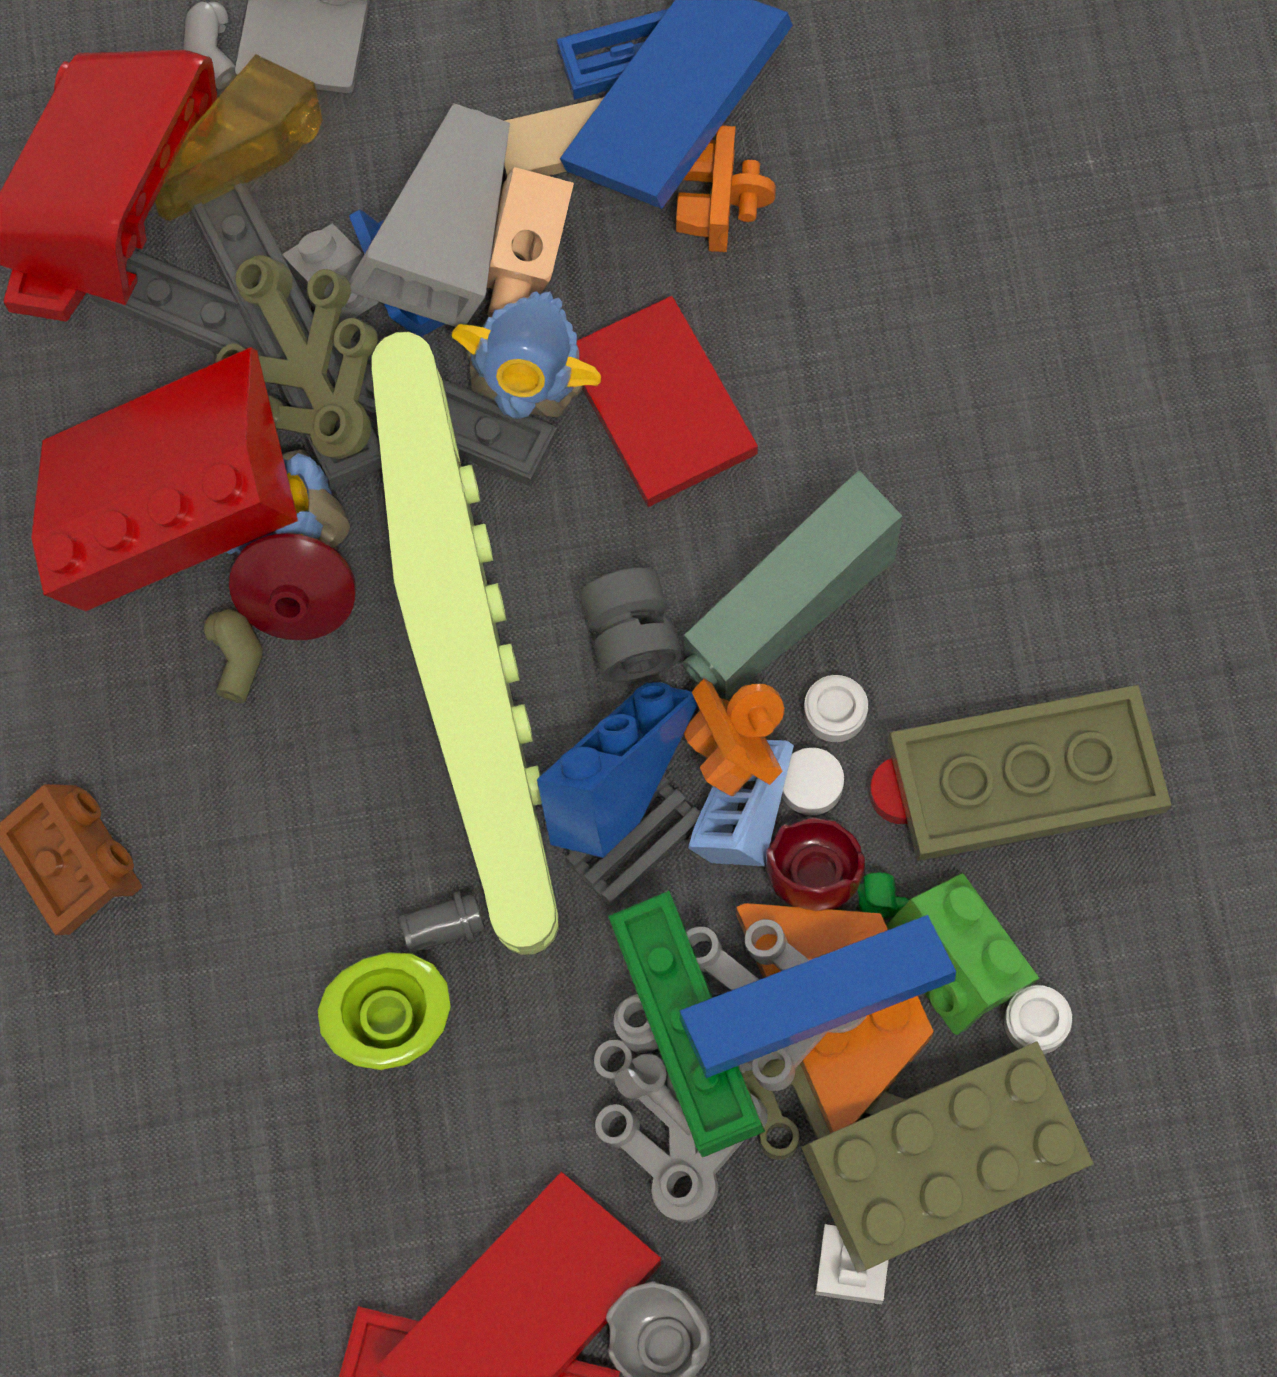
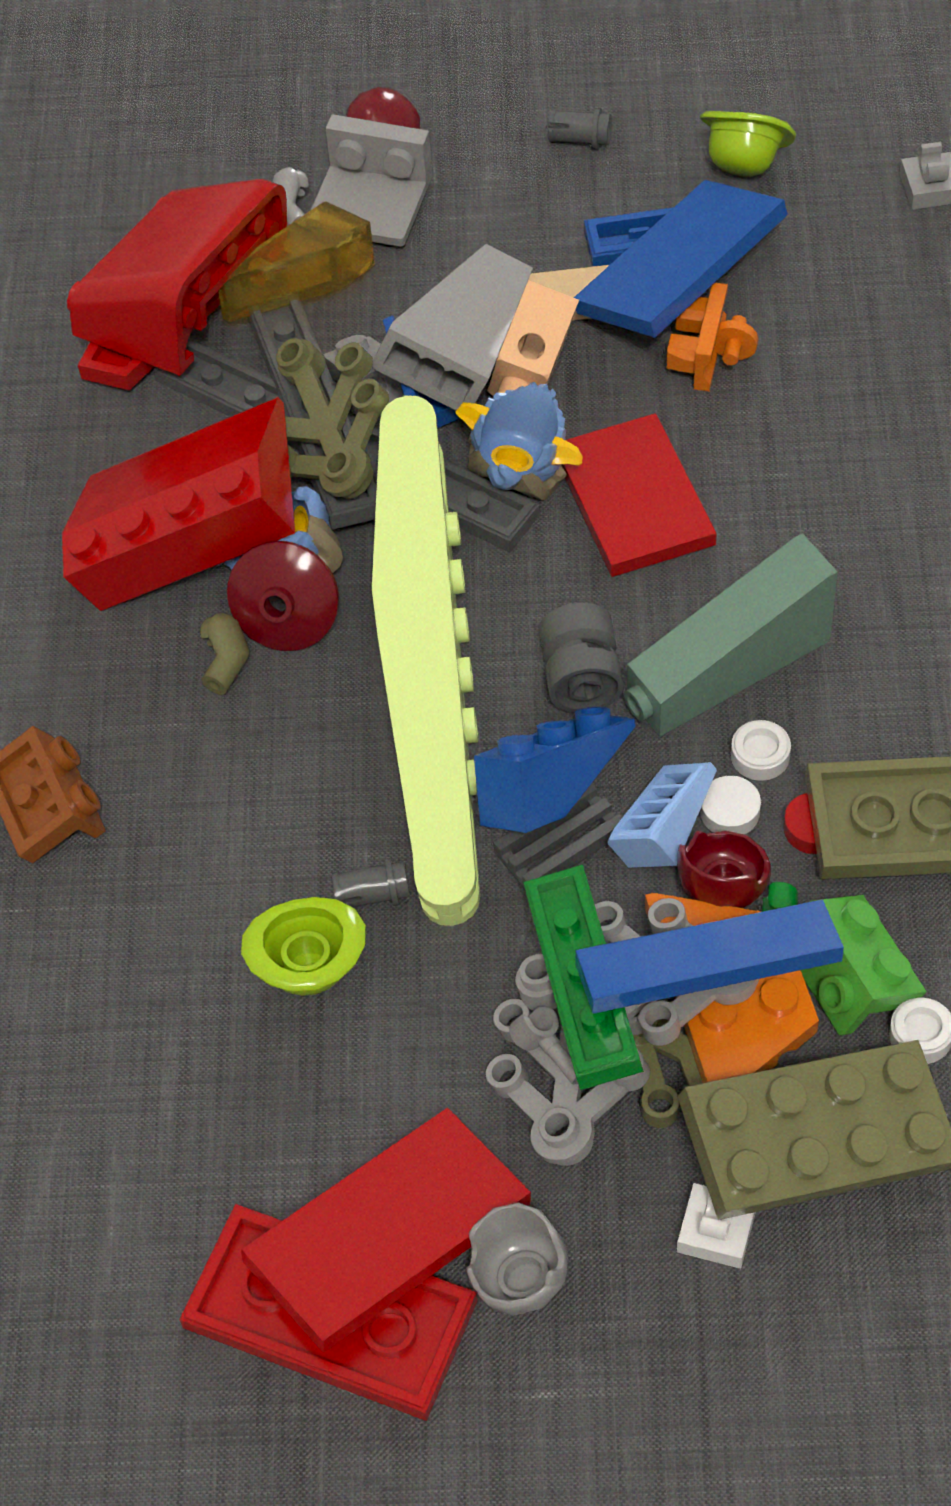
camera: 10 degrees right, 15 degrees down
(735, 734) = (661, 753): orange hips -> none

